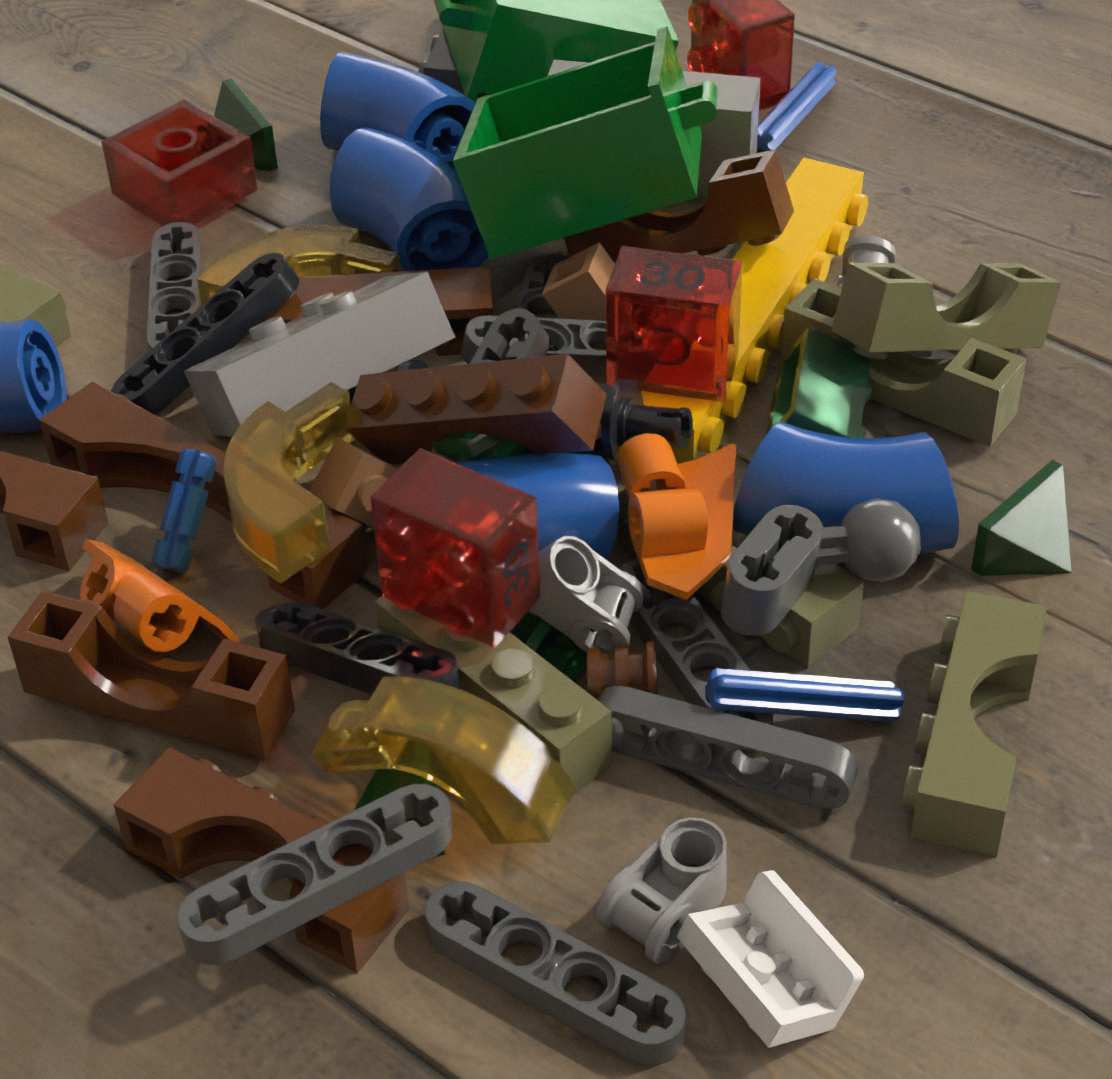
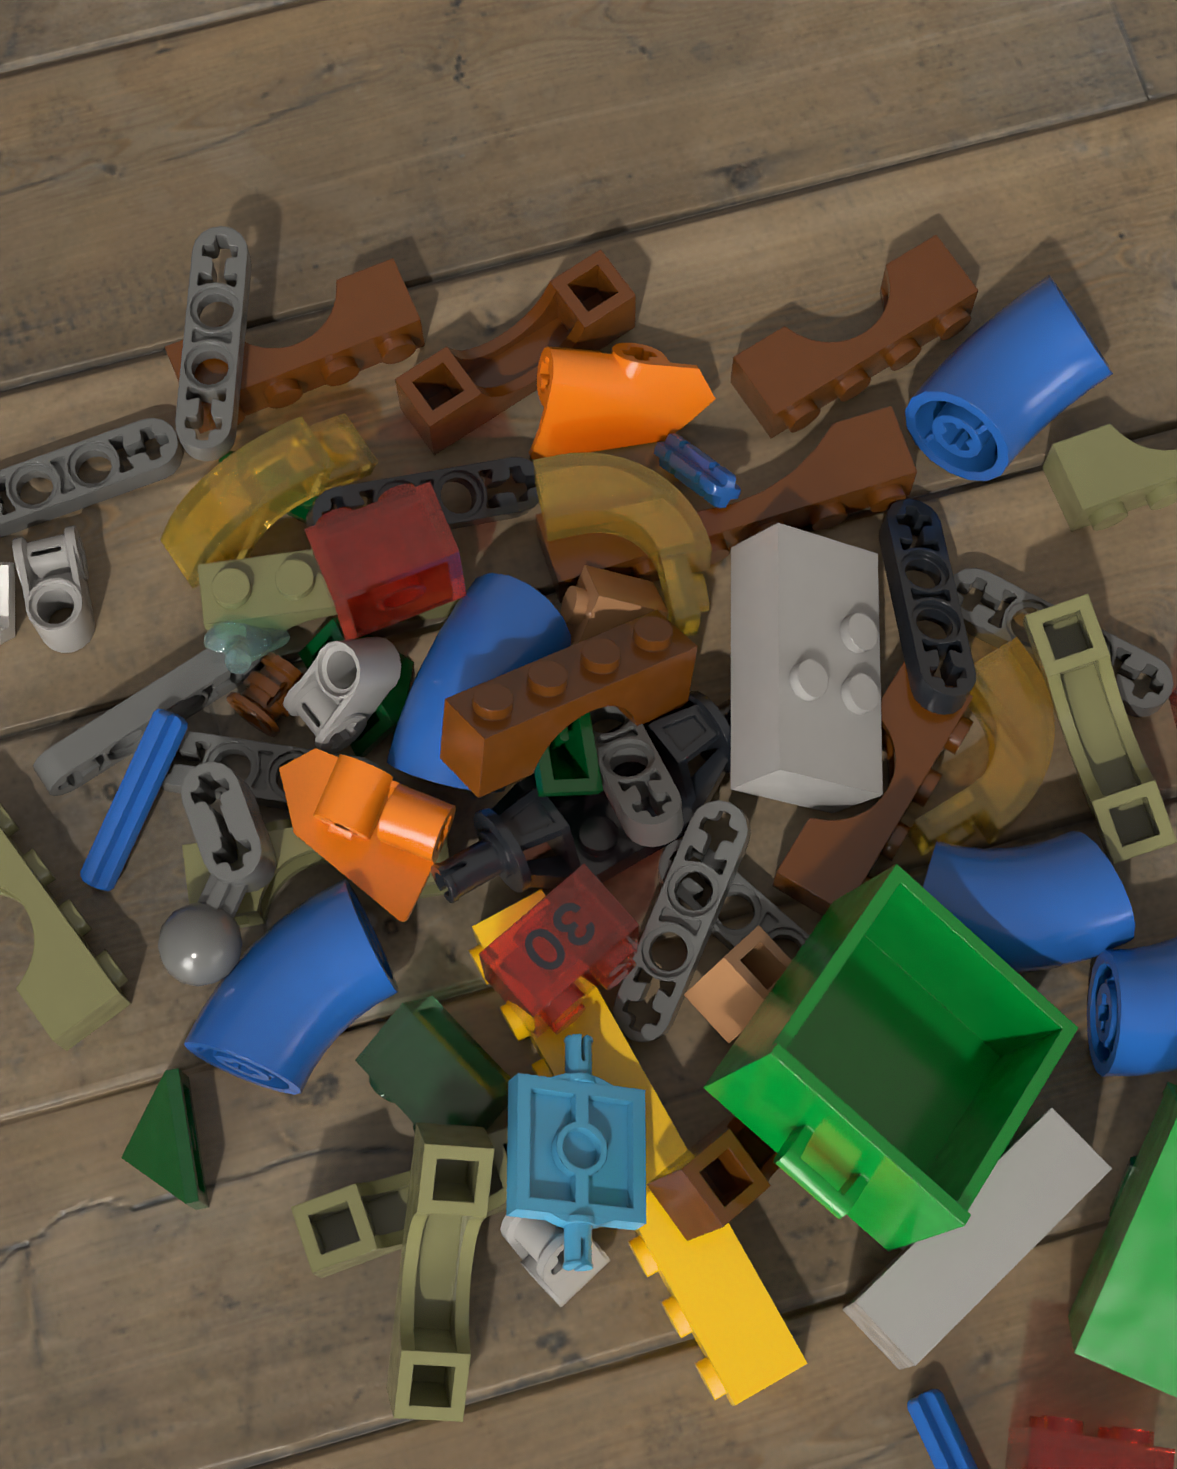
camera: 125 degrees right, 30 degrees up
(189, 235) = (1097, 730): none -> olive arch
(606, 670) = (243, 643): none -> clear light blue animal
(808, 261) = (576, 1152): none -> dark azure plate

